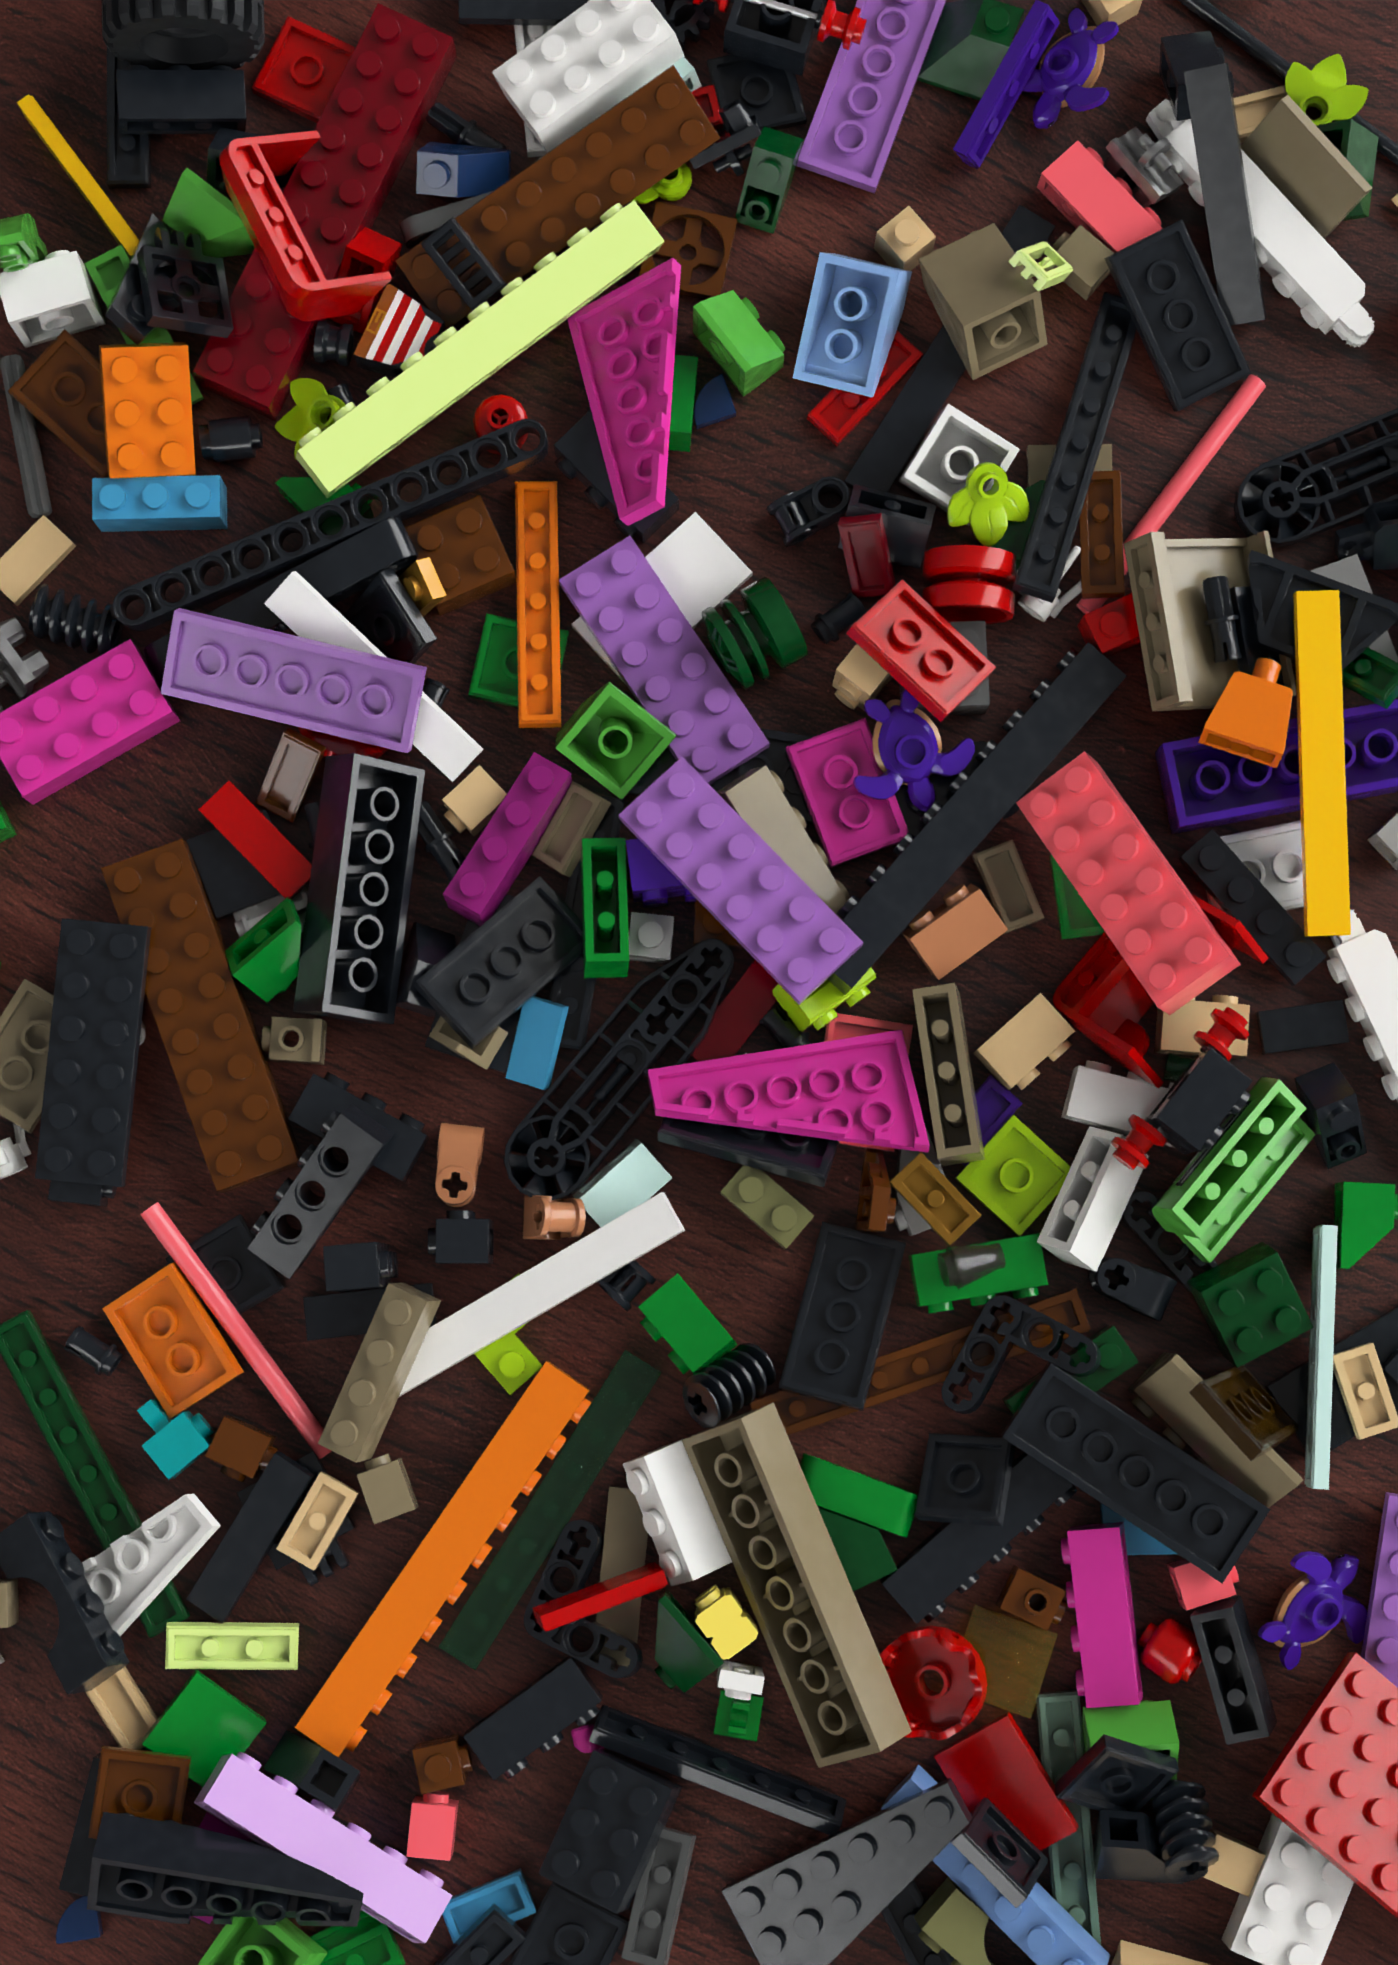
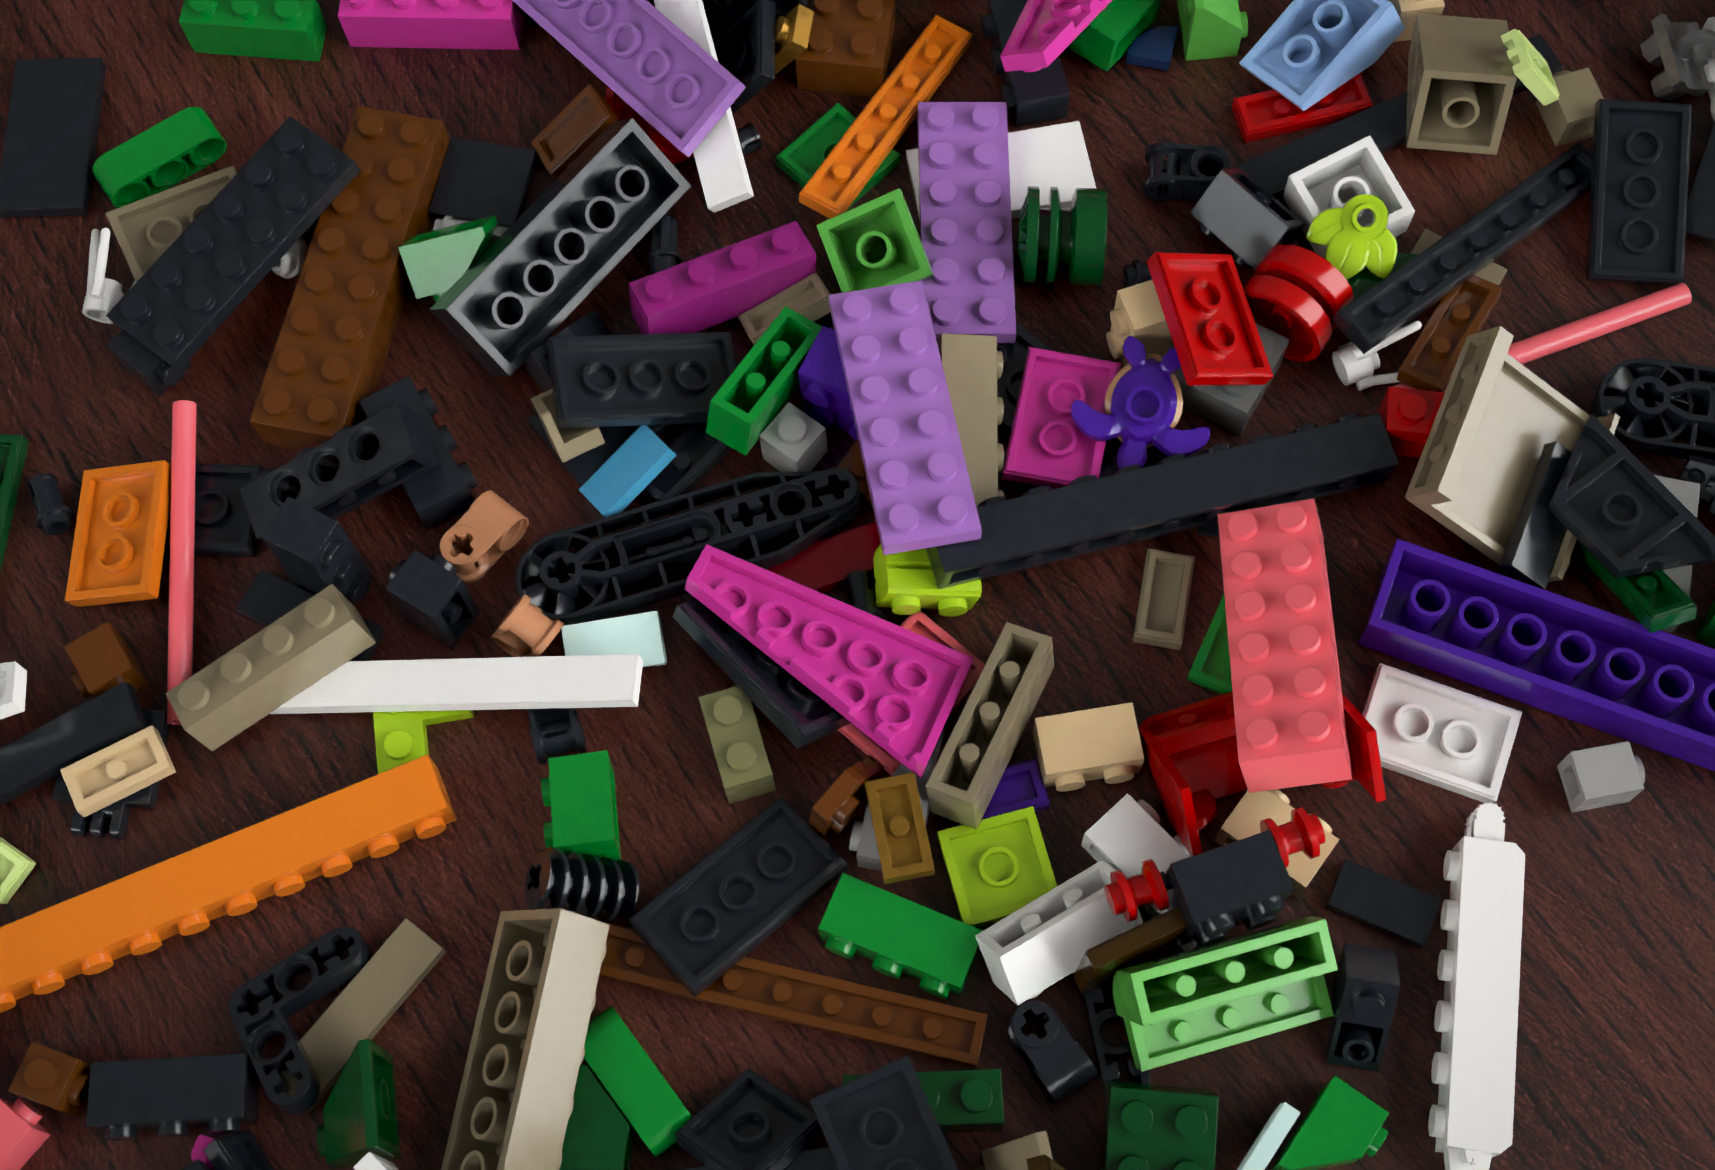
camera: 40 degrees right, 15 degrees down
(177, 1440) = (52, 621): teal brick -> none
(258, 840) = (507, 163): red tile -> none
(310, 1045) = (420, 349): dark tan brick -> none
(386, 1488) = (203, 786): dark tan brick -> none
(473, 802) = (714, 232): tan brick -> none
(550, 1510) = (339, 903): clear green tile -> none
(600, 1596) = (313, 1010): red tile -> none
(676, 1513) = (446, 981): white brick -> none
(724, 1621) = (414, 1115): light yellow brick -> none
(867, 555) = (1215, 219): dark red tile -> none
(954, 930) = (1085, 599): nougat brick -> none
(969, 1263) = (893, 912): clear smoke cone -> none
(1016, 1334) = (894, 1013): black beam -> none
(1095, 199) = (1612, 47): coral brick -> none
(1153, 1186) = (1129, 949): none -> dark brown tile
(1221, 618) = (1525, 462): black axle -> none
(1250, 902) = (1410, 792): black plate -> none
(1251, 715) = (1502, 556): orange torso -> none
(1321, 763) = (1549, 648): yellow tile -> none

